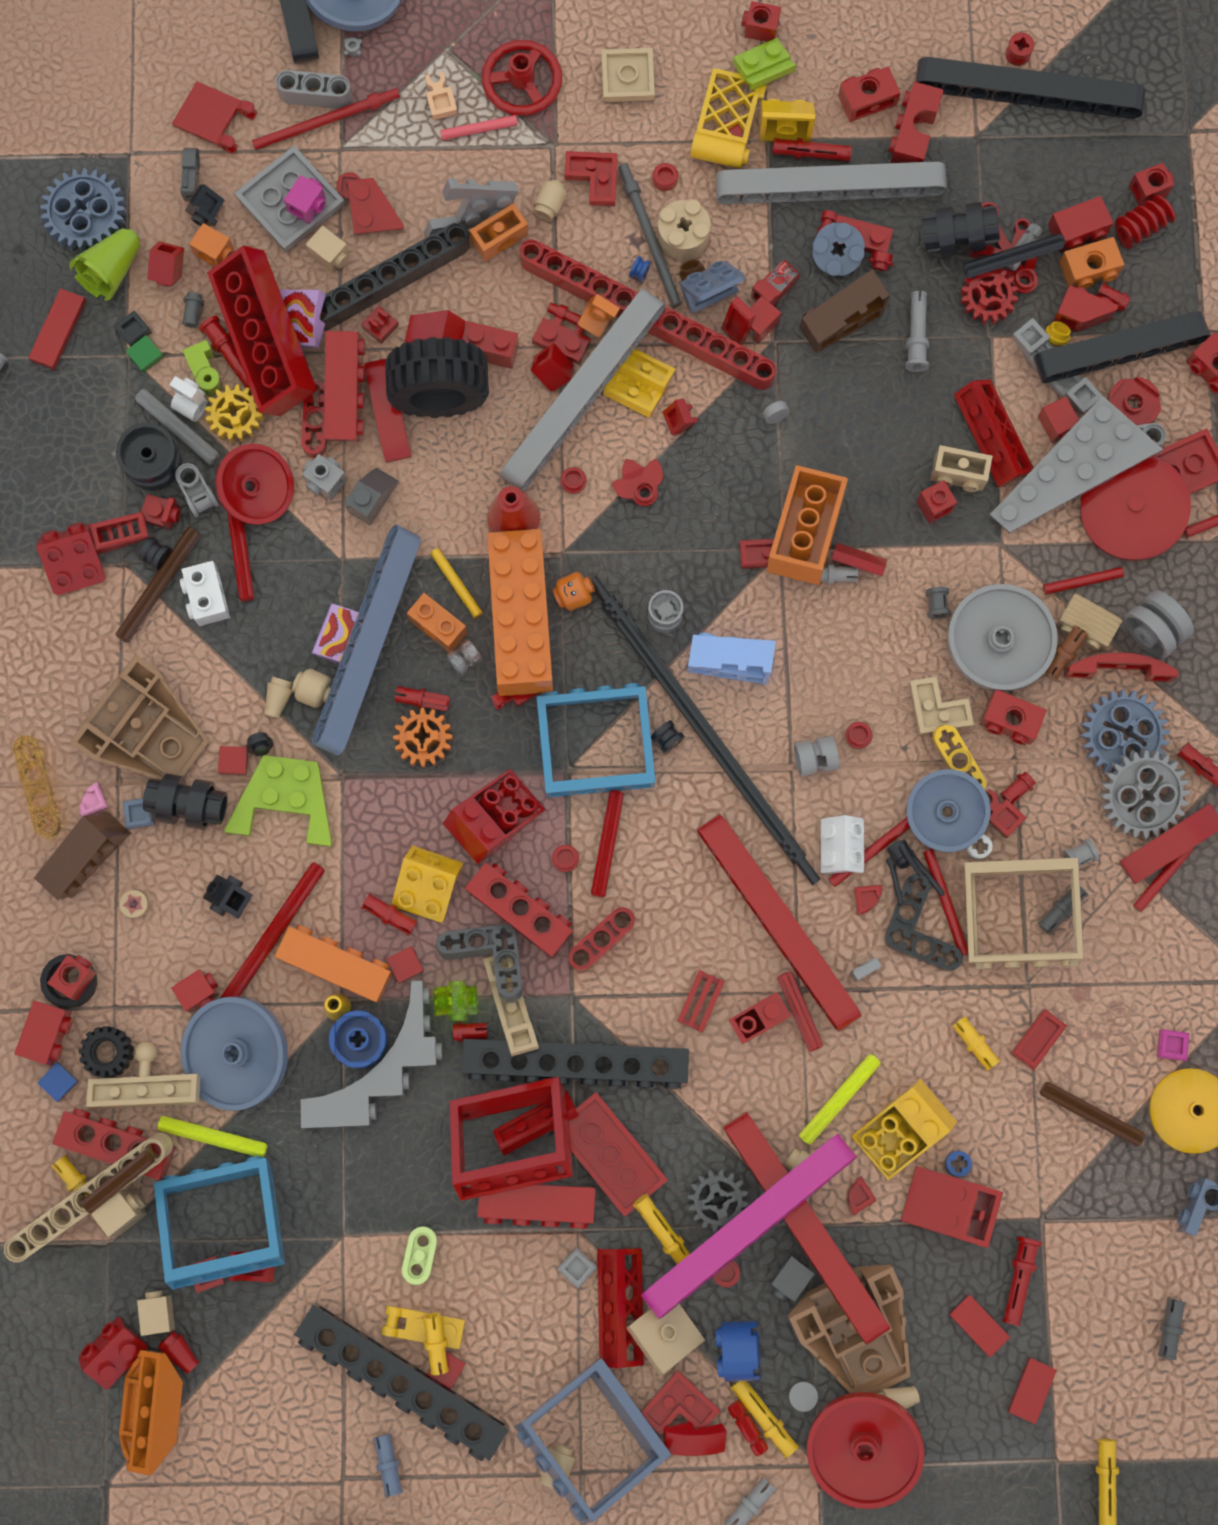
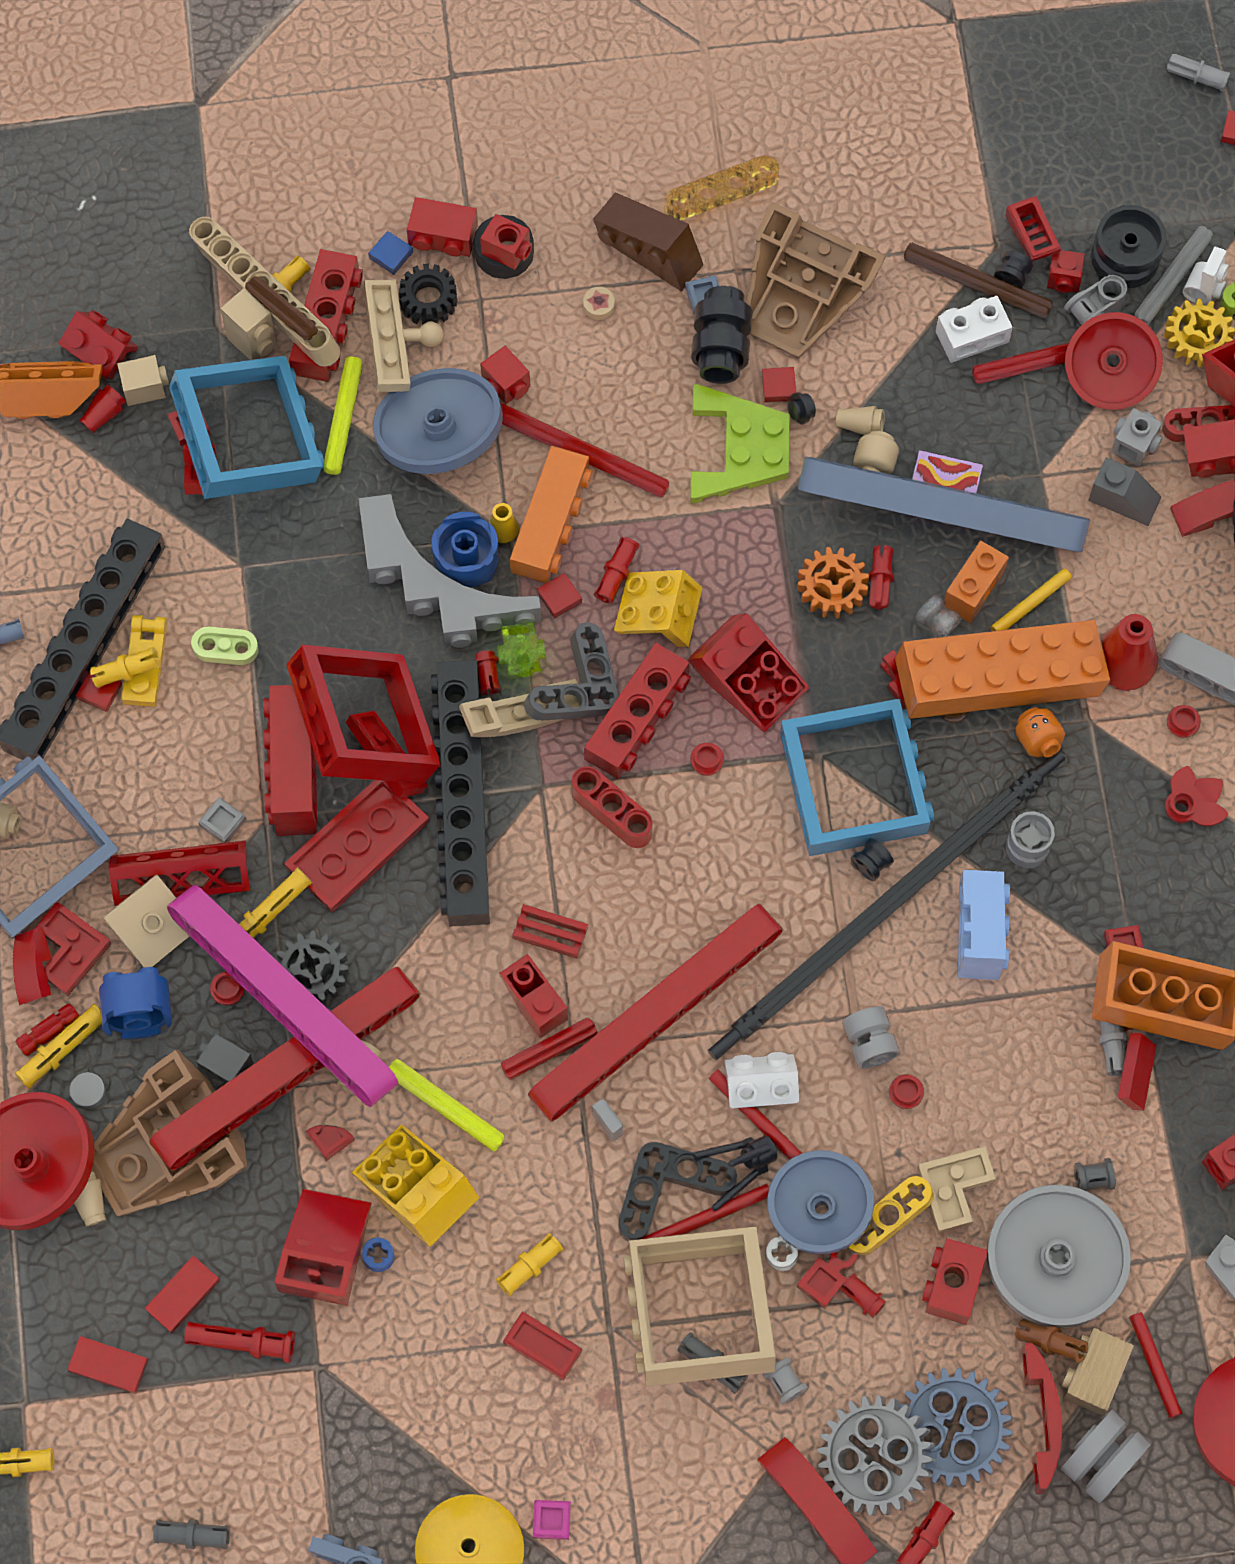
camera: 85 degrees right, 10 degrees down
(70, 558) = (992, 183): red bracket -> none
(93, 801) = (713, 247): bright pink tile -> none
(227, 896) = (617, 392): black brick -> none
(607, 843) = (731, 805): red axle -> none
(866, 898) = (699, 1119): red tile -> none
(1092, 1114) = (454, 1419): reddish brown axle -> none
(1160, 881) = (766, 1492): red bar -> none

